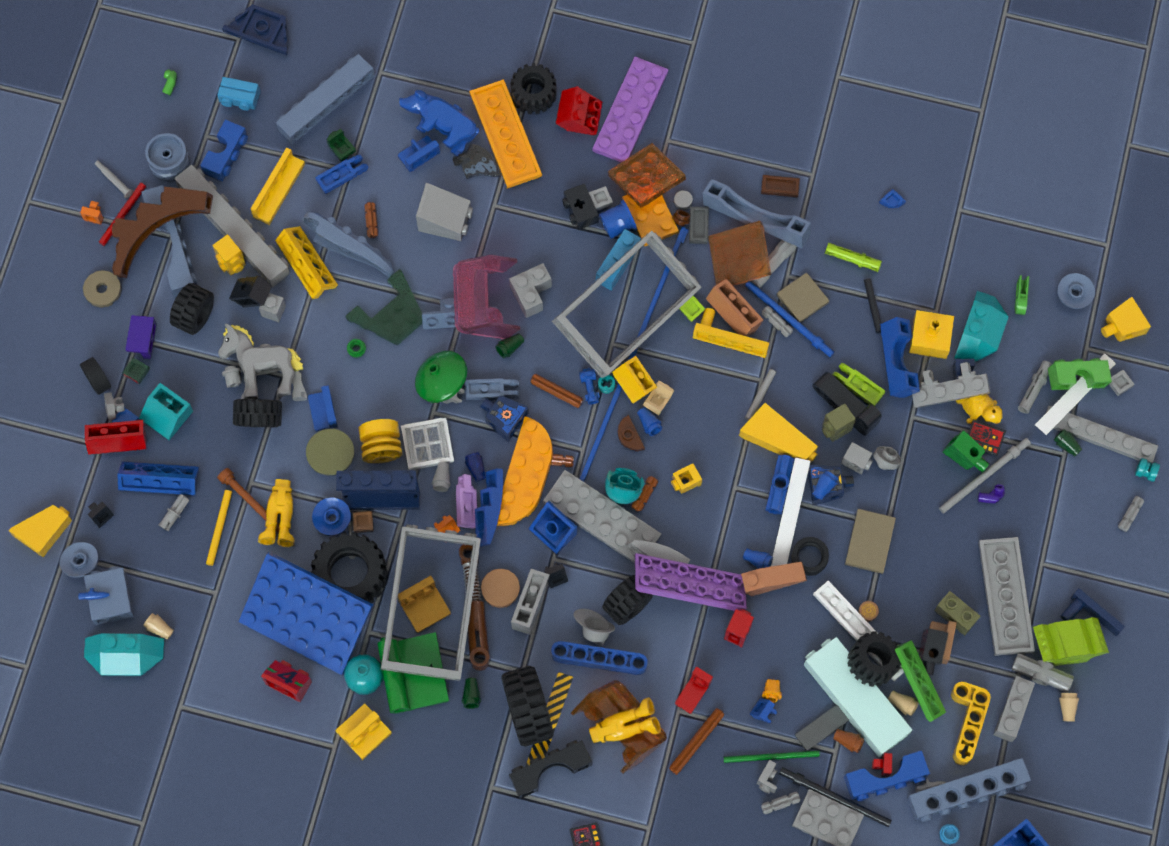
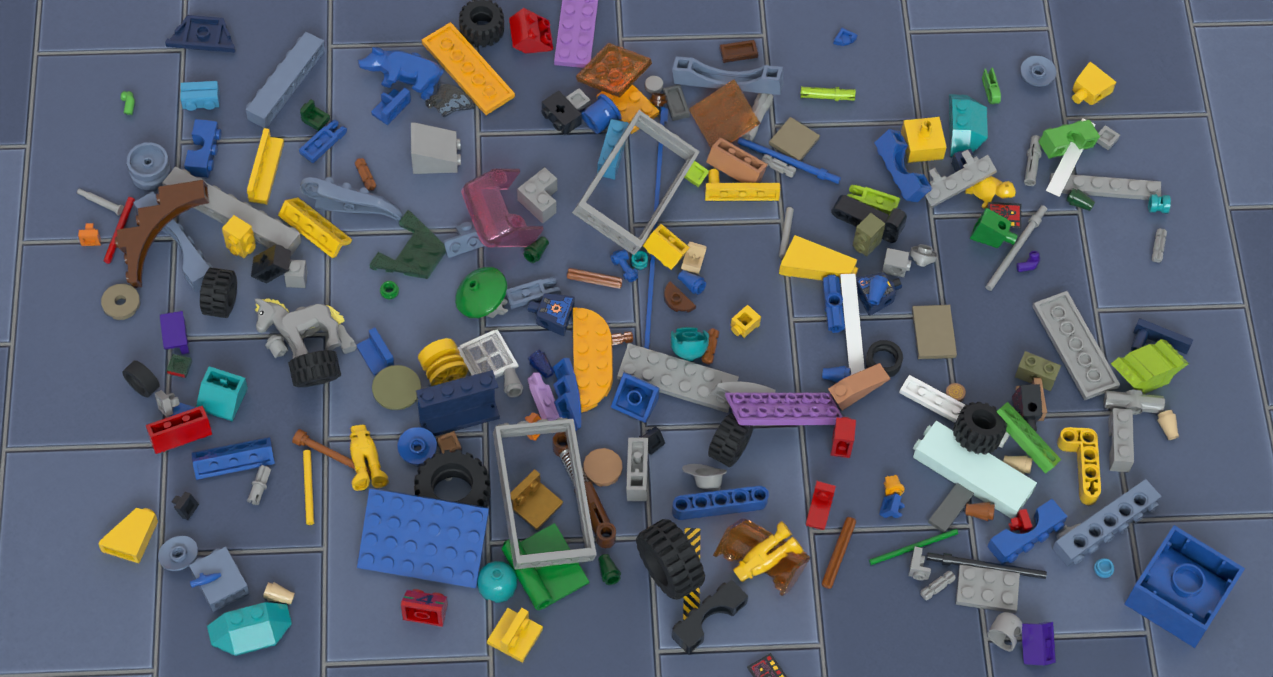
camera: 20 degrees left, 10 degrees down
(873, 305) = (860, 129): black piece -> none

